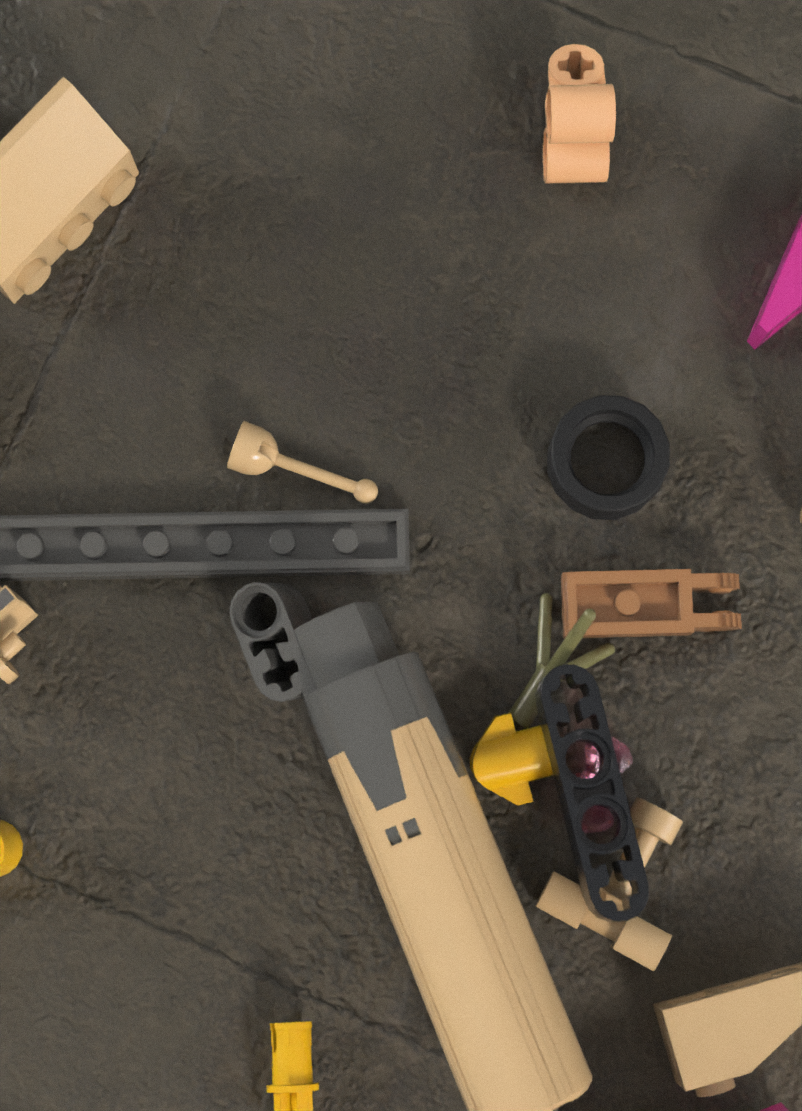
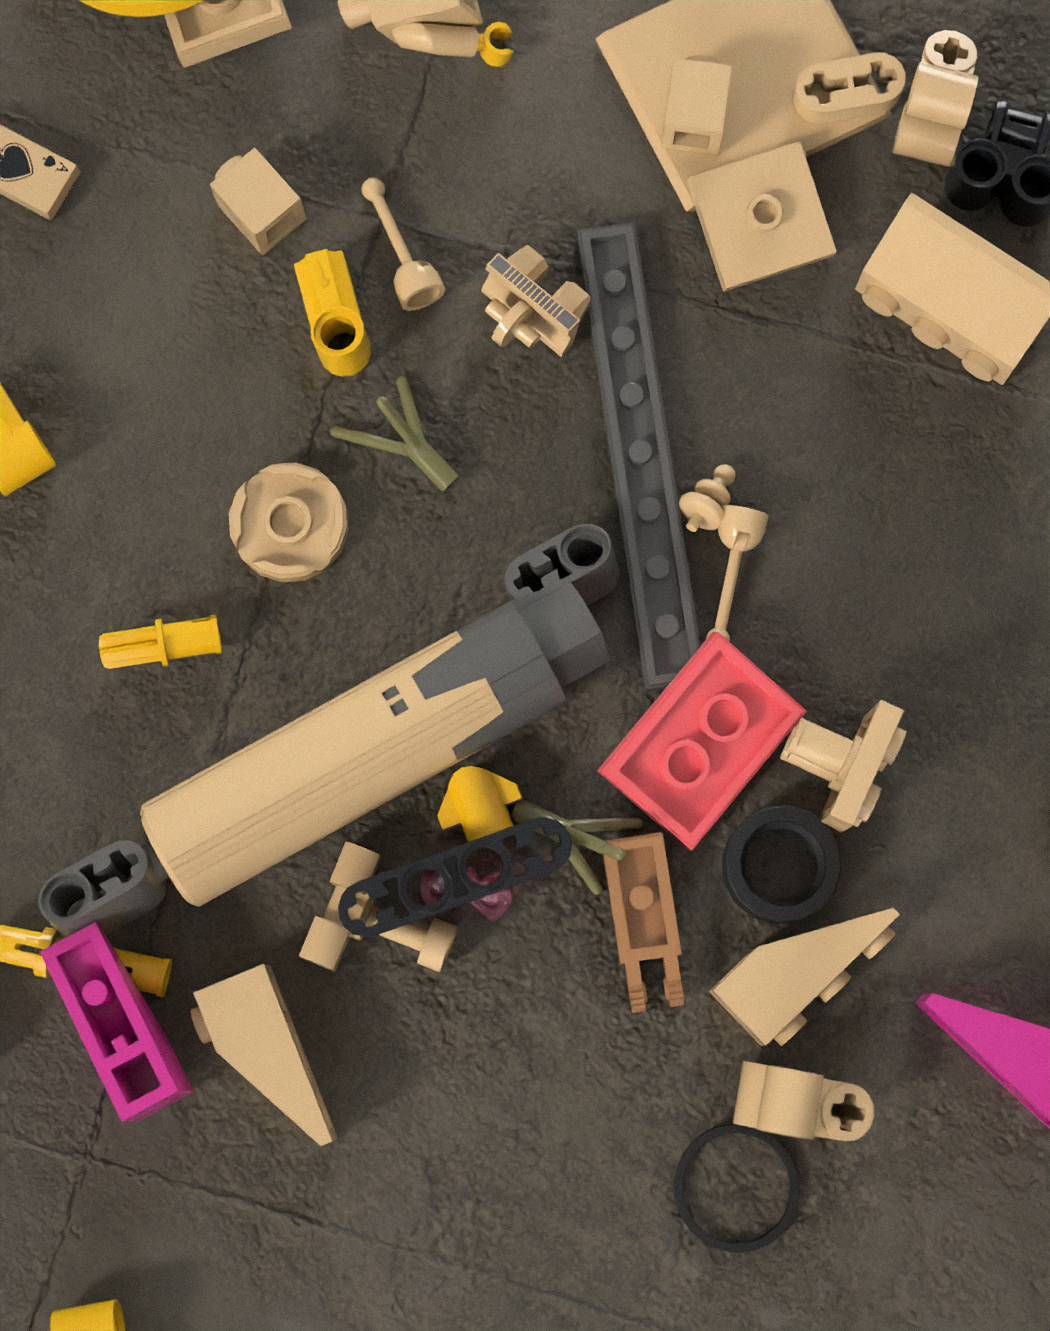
camera: 85 degrees right, 0 degrees up
(97, 785) = (411, 432): none -> olive plant
(176, 931) = (288, 522): none -> tan tile
(223, 484) = (704, 505): none -> tan hair
(470, 520) = (702, 740): none -> coral tile
(520, 370) = (848, 763): none -> tan plate
(719, 463) = (784, 976): none -> tan slope

